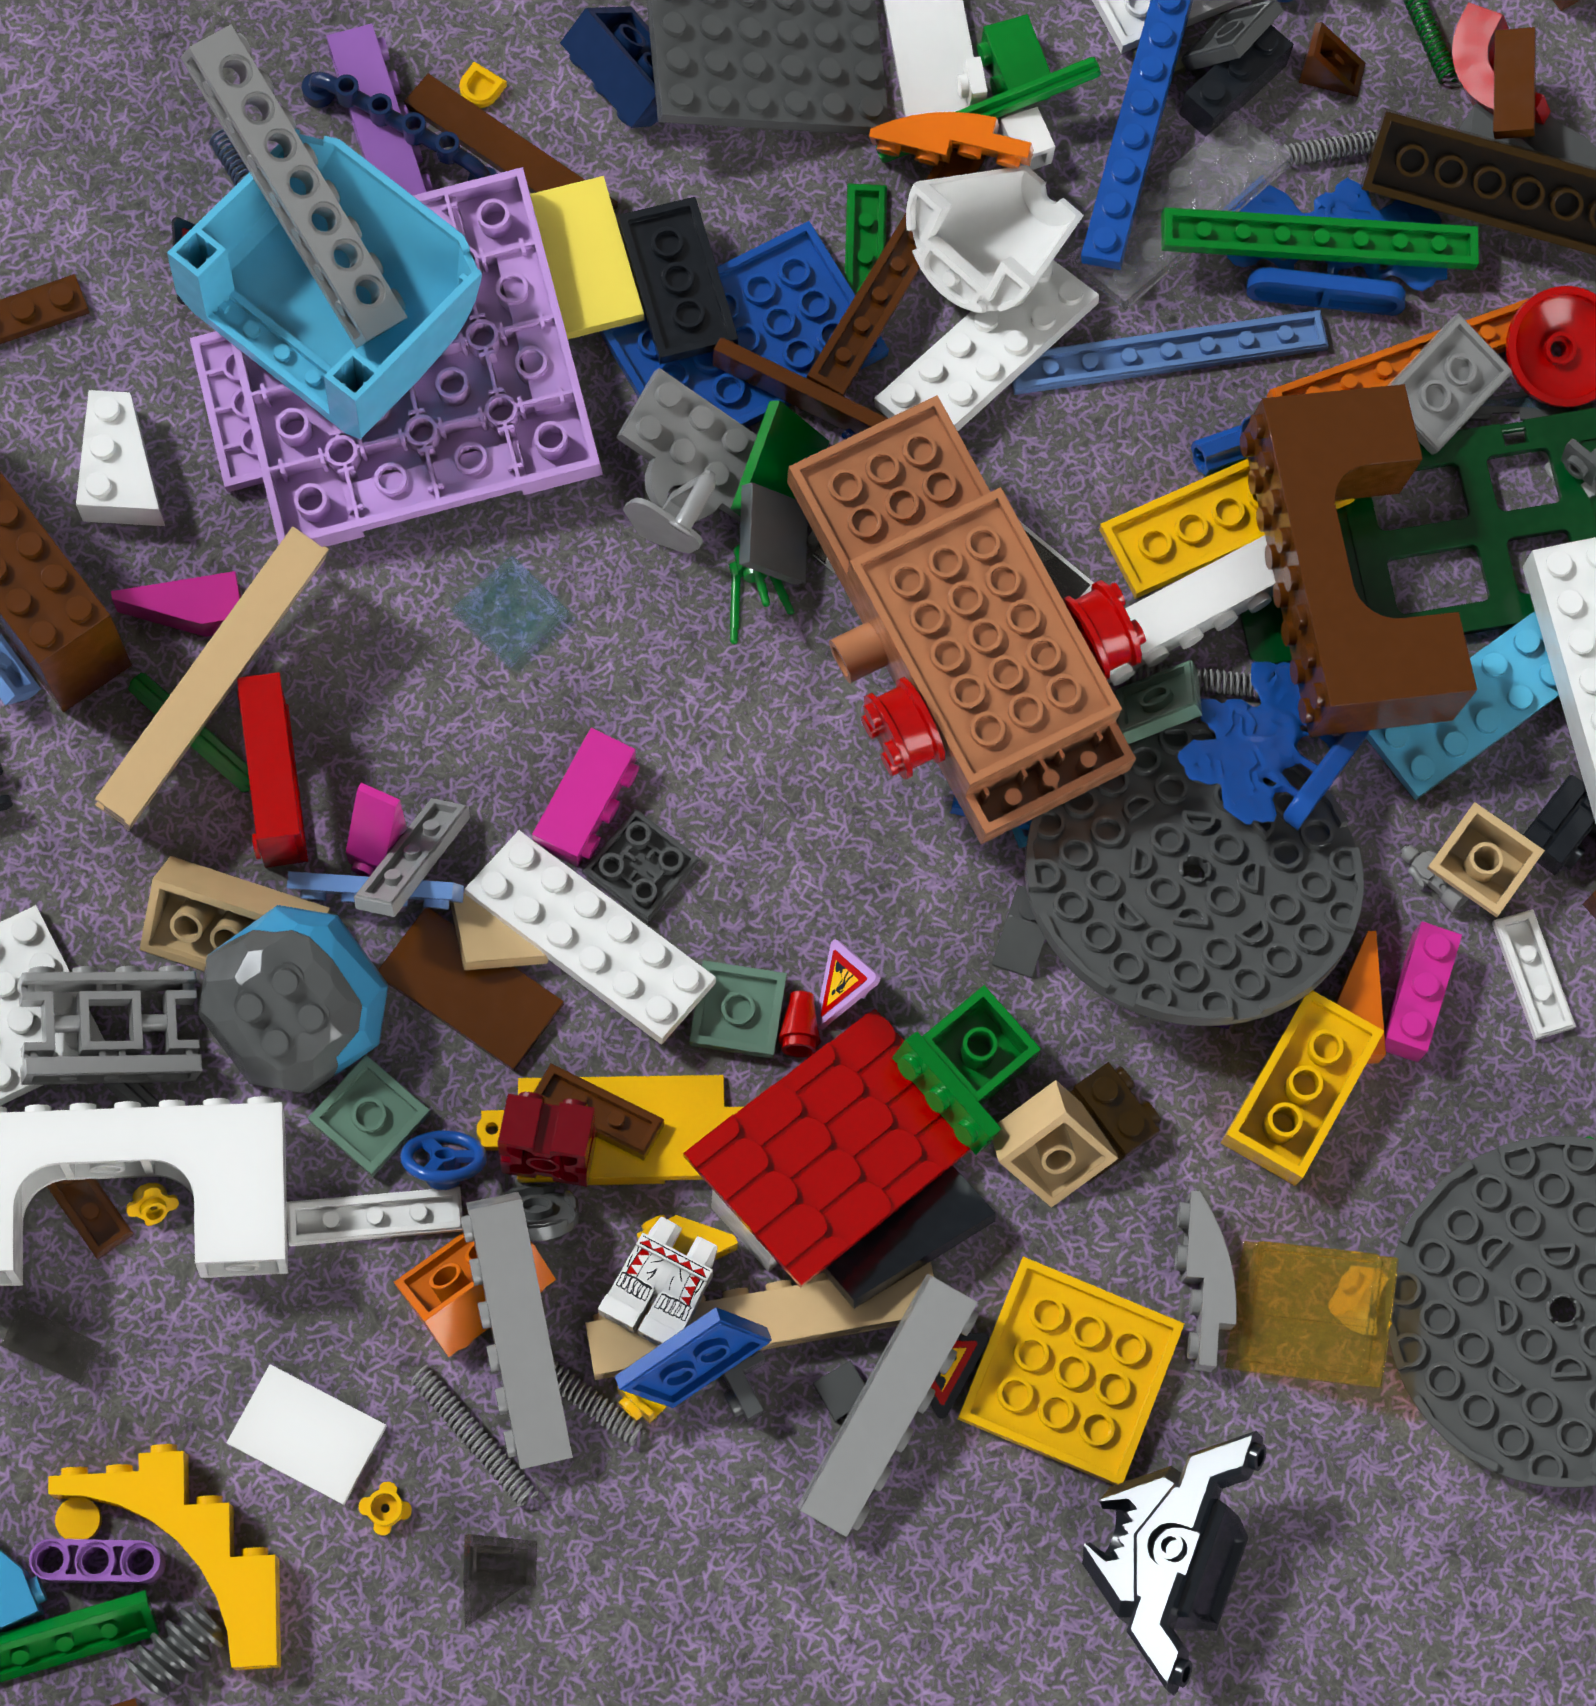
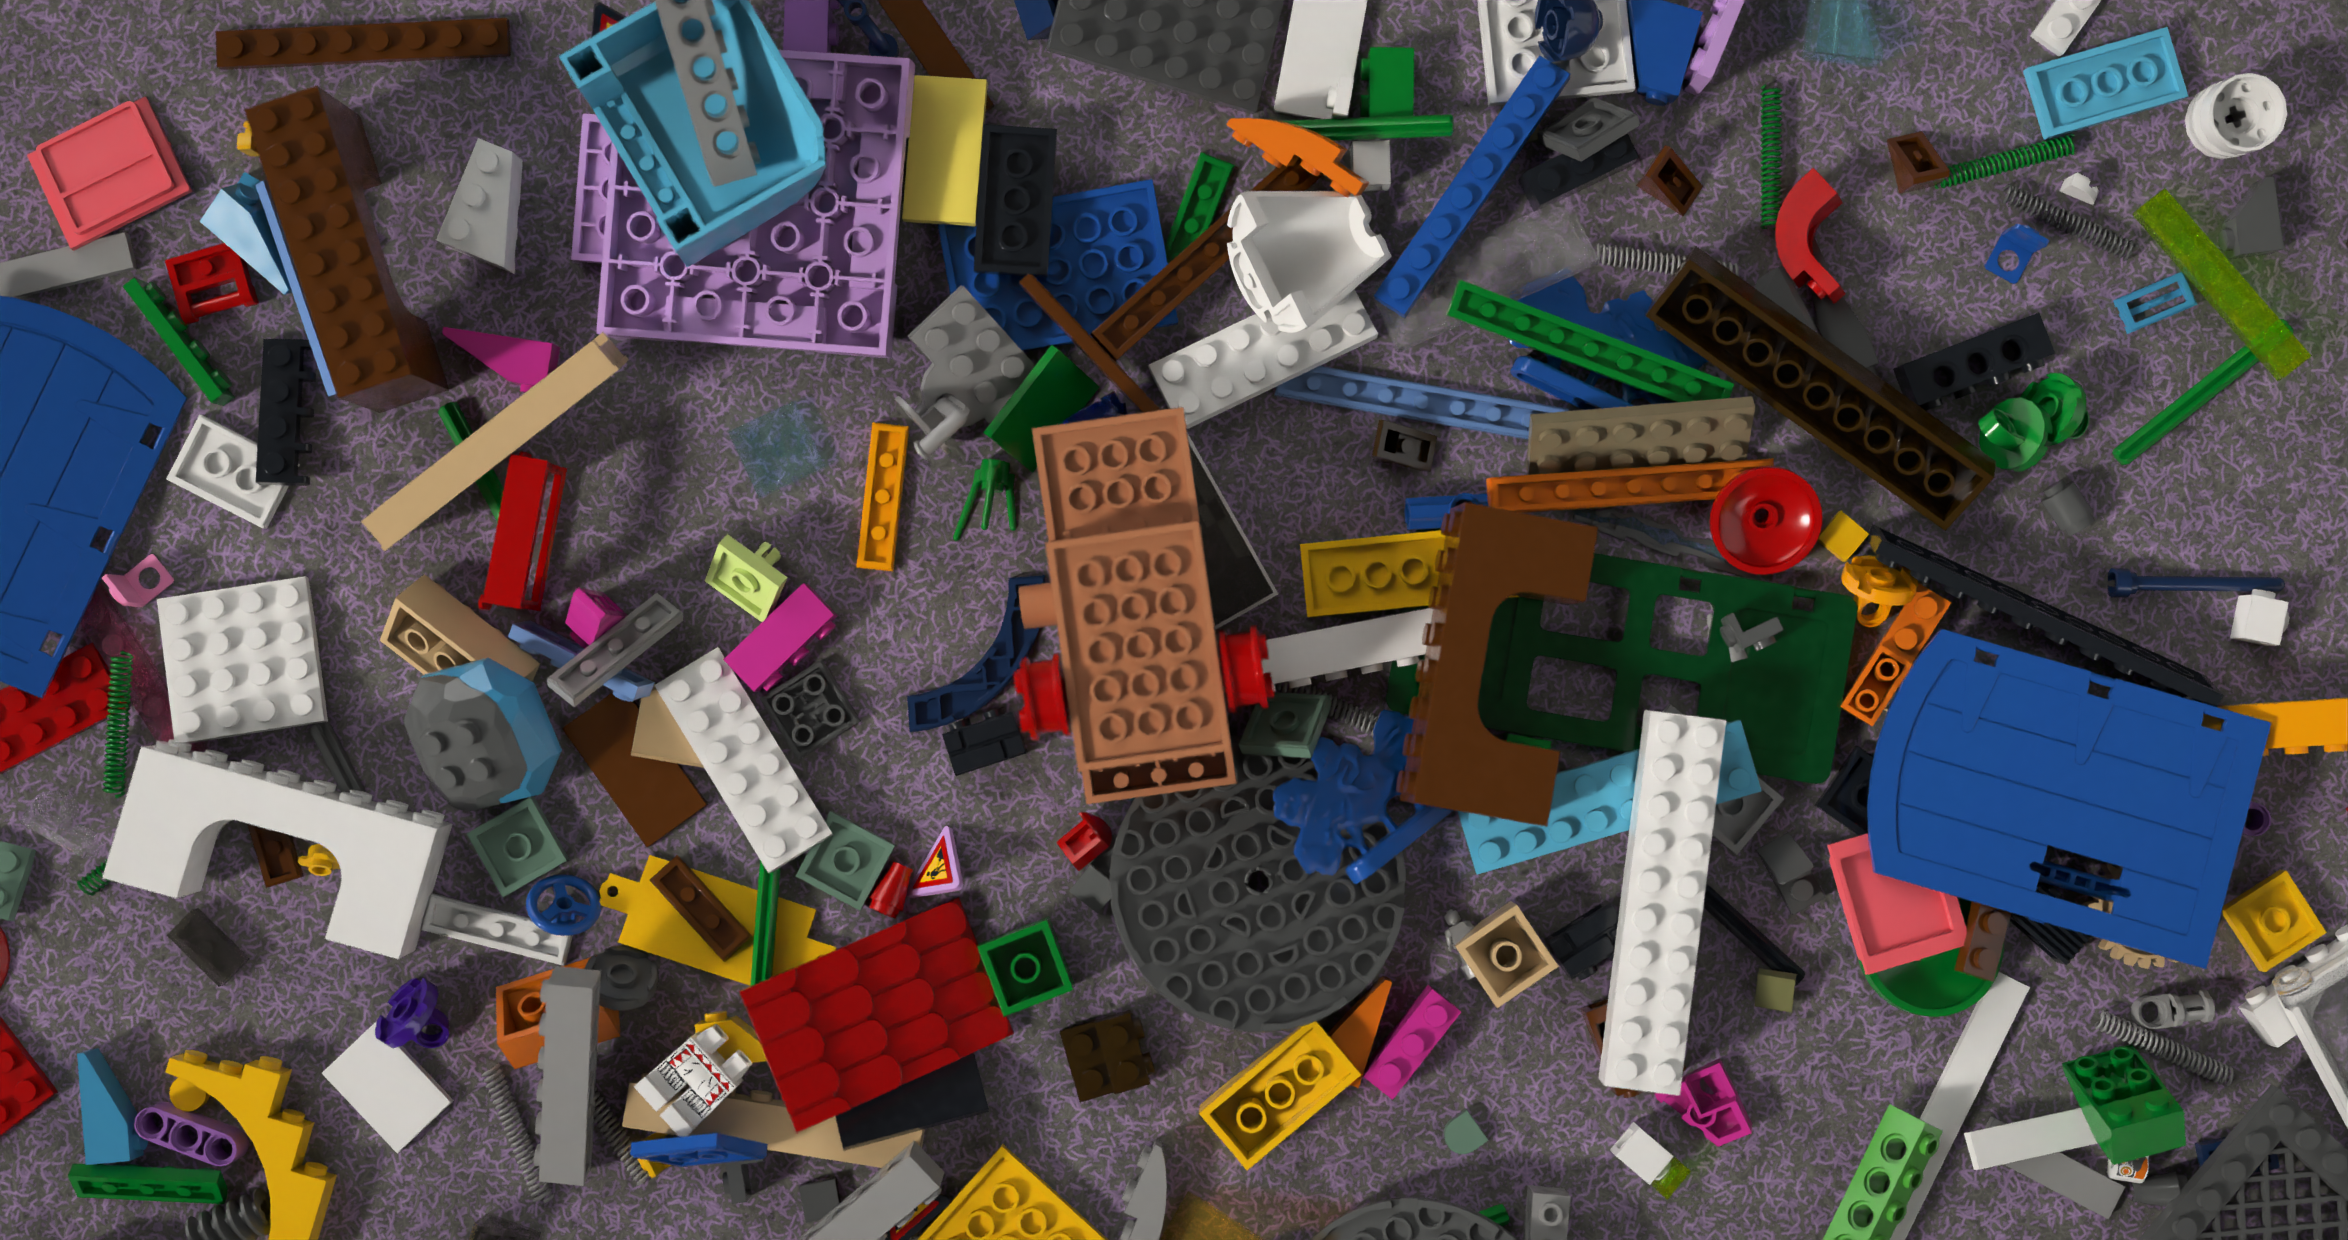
camera: 25 degrees right, 15 degrees up
(108, 1060) = (320, 732): light grey fence -> none
(309, 1332) = (411, 1011): none -> dark purple tile
(372, 1506) = (422, 1174): yellow plate -> none
(526, 743) = (747, 576): none -> yellowish green tile
(547, 1138) = (642, 928): dark red brick -> none
(641, 623) = (883, 497): none -> light orange tile
(674, 1104) = (765, 925): none -> green axle
(772, 534) = (1009, 467): dark grey tile -> none
(822, 765) = (986, 677): none -> dark blue tile
(844, 833) = (984, 742): none -> black brick
(946, 1093) = (983, 998): green plate -> none
(990, 899) = (1086, 840): none -> red plate
(1052, 1144) = (1056, 1065): tan slope -> none
(1167, 394) = (1404, 446): none -> dark brown slope
(1405, 303) = (1640, 436): none -> dark tan plate
(1450, 381) = (1647, 519): light grey tile -> none
(1514, 83) = (1819, 265): reddish brown tile -> none
(1515, 1075) = (1463, 1133): none -> sand green tile
(1533, 974) = (1514, 1055): white tile -> none

